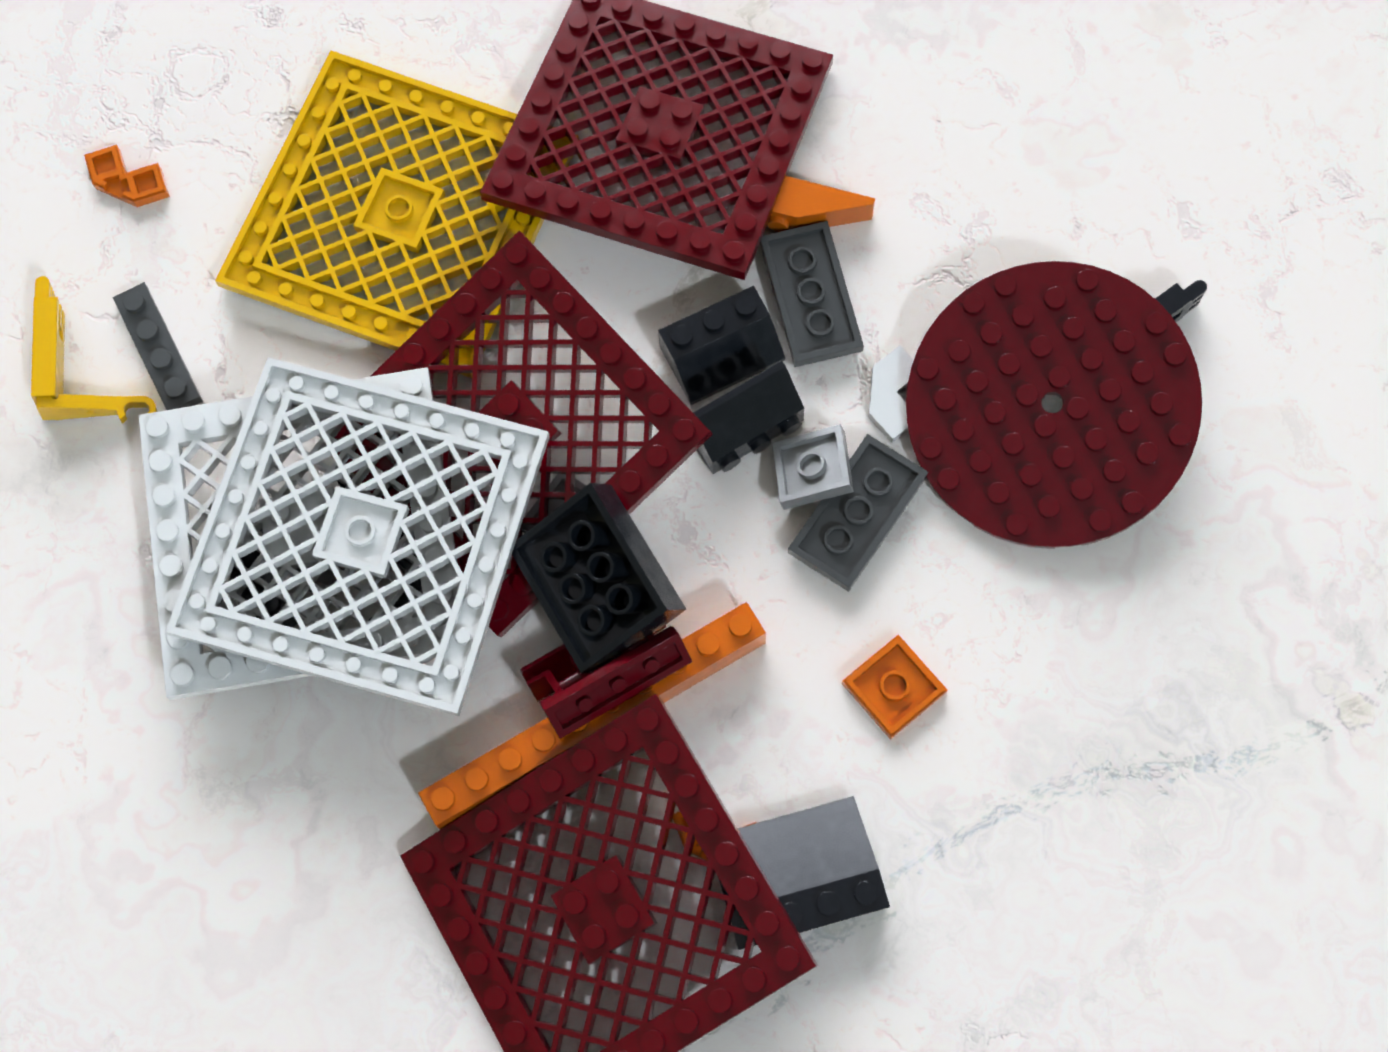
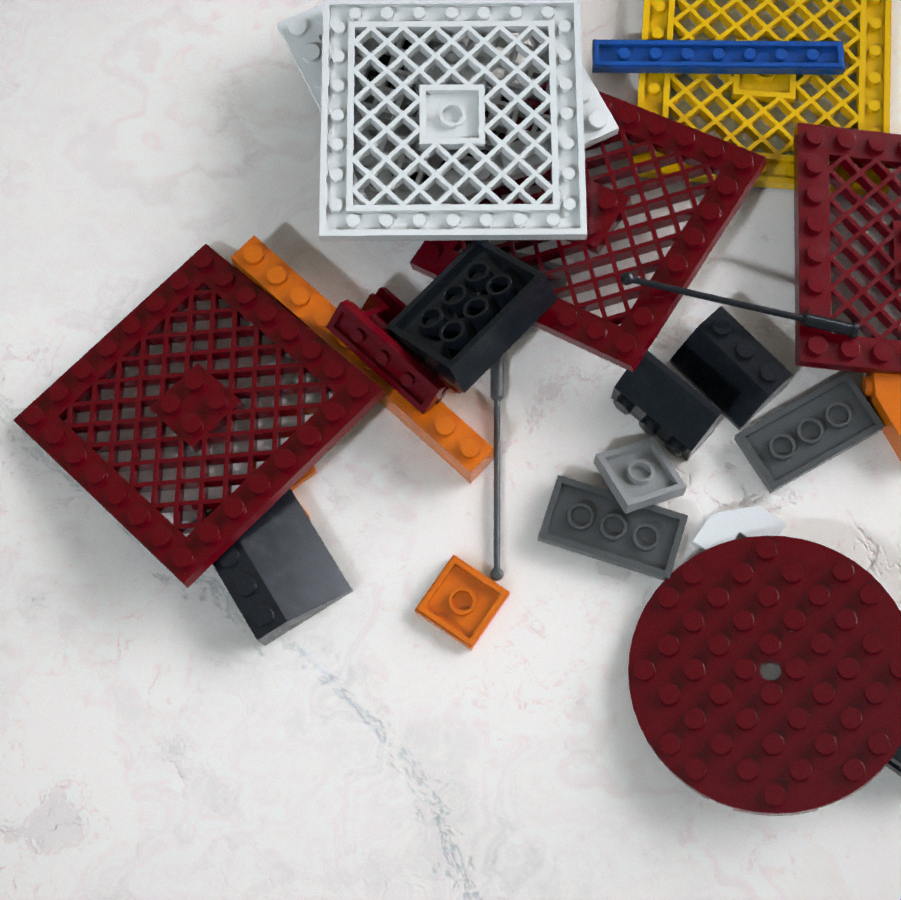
camera: 70 degrees right, 0 degrees up
(369, 249) = (718, 57): none -> blue tile
(727, 215) = (807, 319): none -> black piece
(872, 642) = (497, 395): none -> dark grey piece

